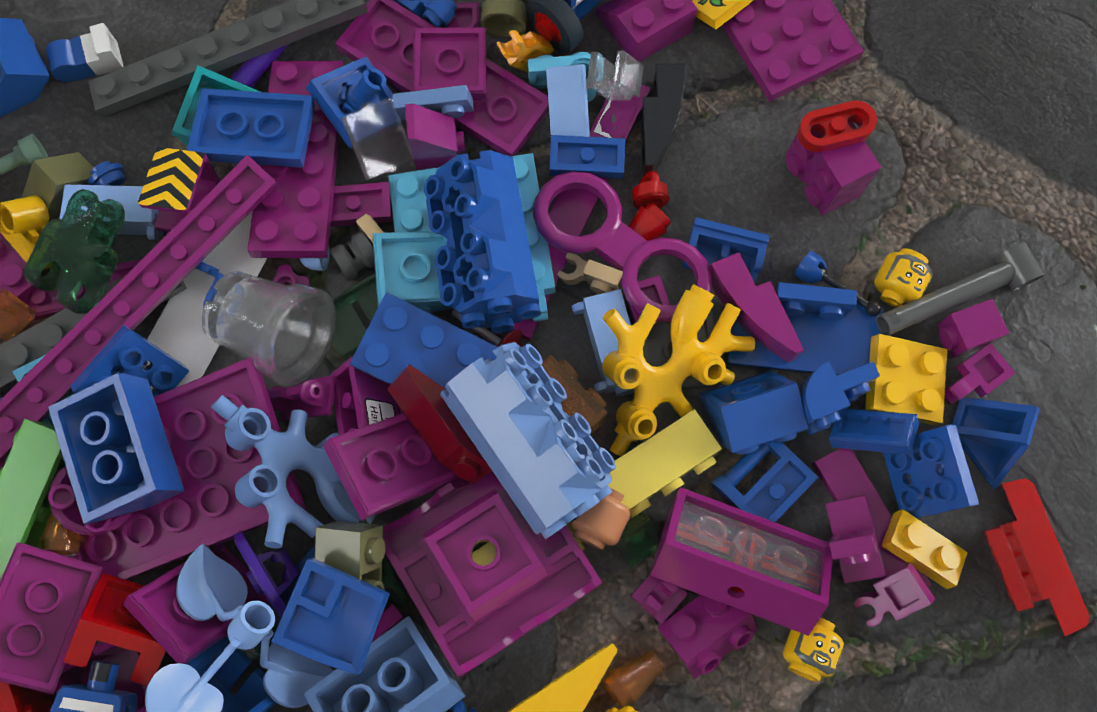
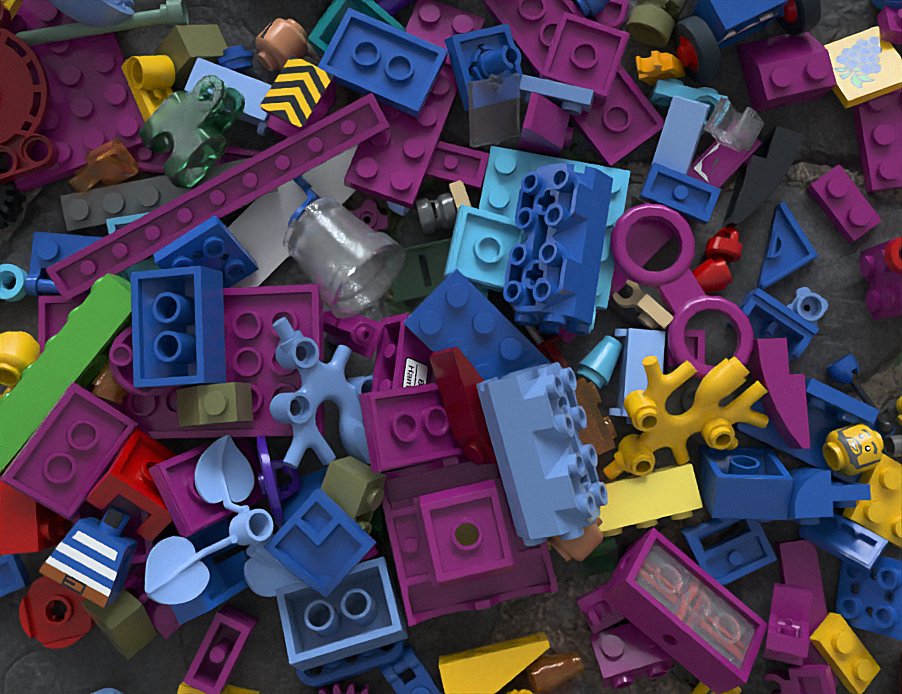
camera: 15 degrees right, 10 degrees up
(141, 145) = (279, 42): none -> nougat head
(178, 514) = (215, 404): none -> olive slope
(570, 342) = (600, 362): none -> medium azure cone
(711, 176) = (785, 248): none -> blue tile
(750, 117) = (844, 204): none -> magenta plate
(755, 214) = (816, 304): none -> medium blue plate
(847, 338) = (853, 449): none -> yellow head

